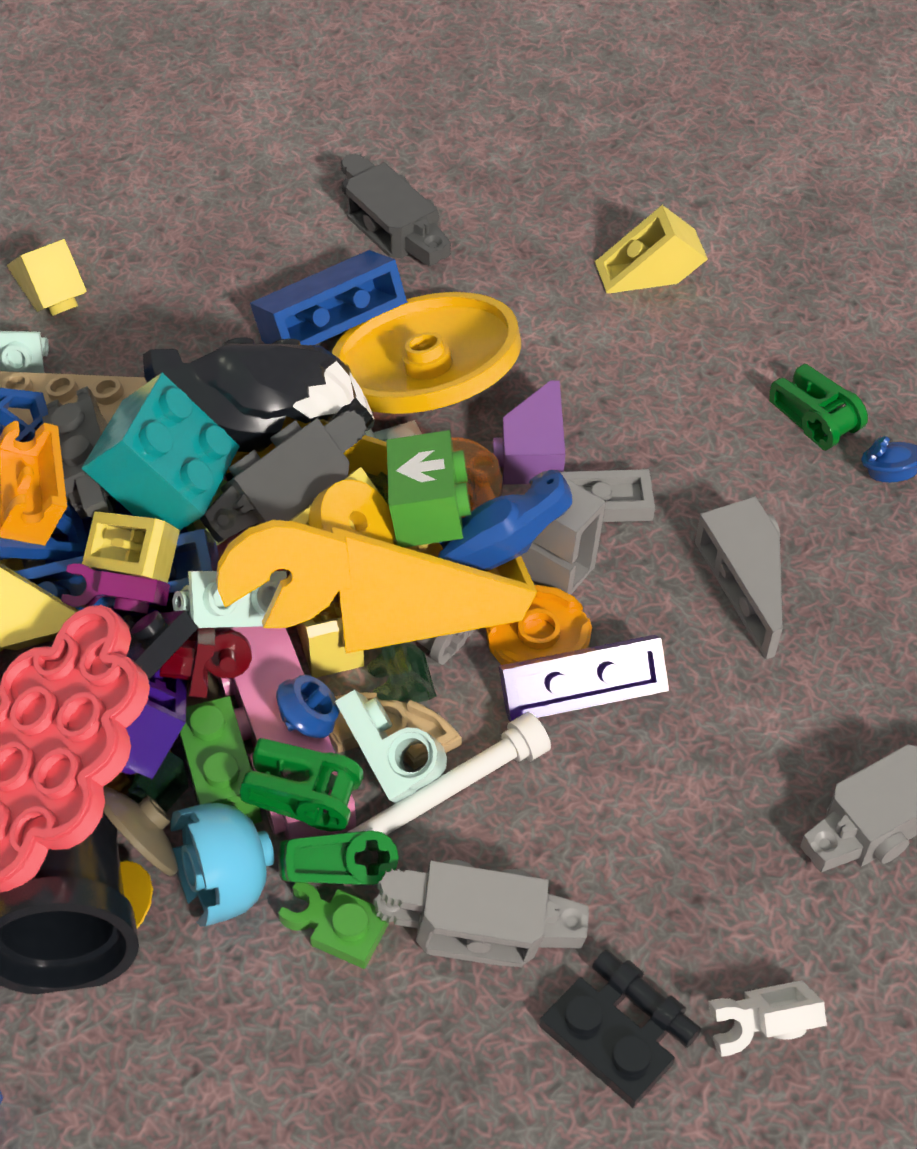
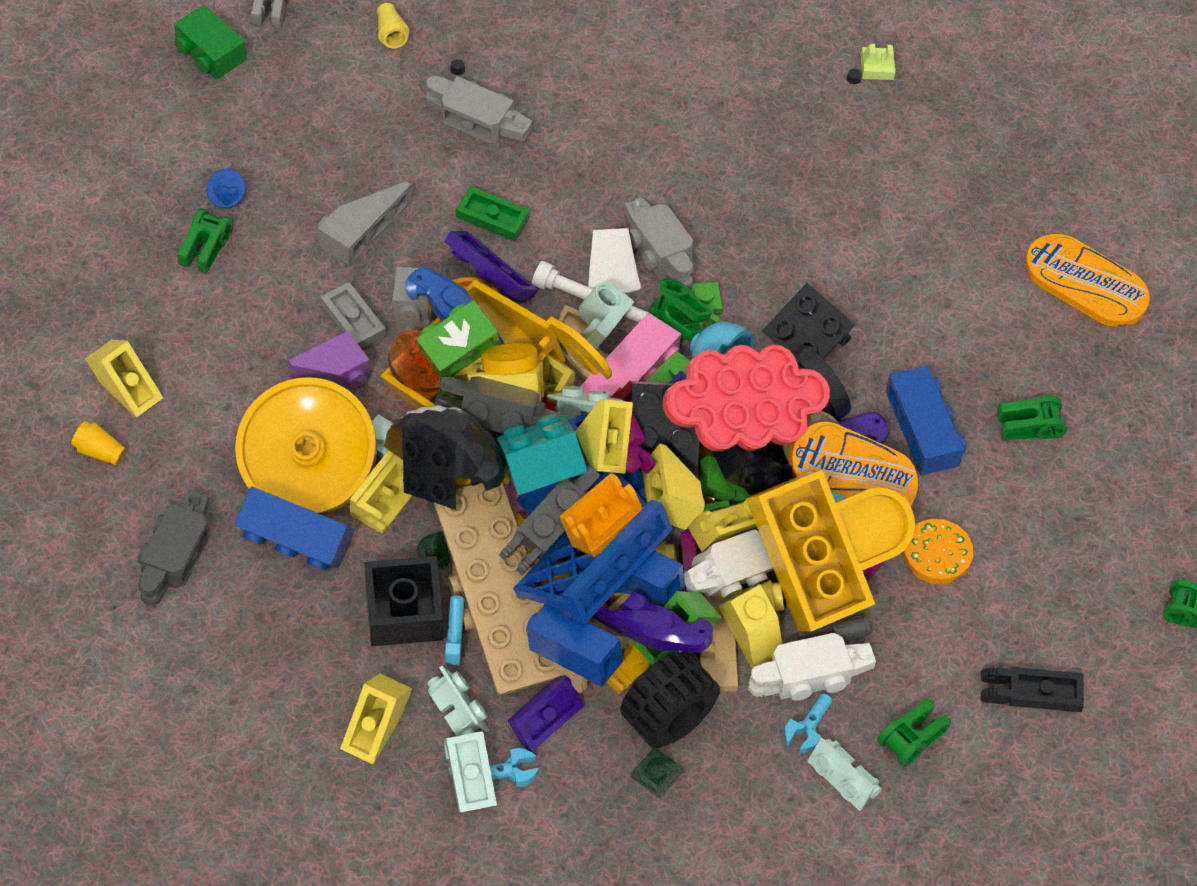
camera: 125 degrees left, 5 degrees up
(60, 363) = (454, 634): none -> medium azure bar
(143, 321) = (403, 601): none -> black brick
(184, 1041) = (810, 321): none -> black hinge
(298, 784) = (663, 316): green piece -> none
(307, 706) = (617, 350): blue hat -> none
(503, 838) = (613, 260): none -> white piece
(576, 208) = (97, 443): none -> yellow cone
(608, 1040) = (680, 177): black plate -> none
(679, 732) = (492, 213): none -> green plate
(776, 1010) = (621, 116): white plate -> none

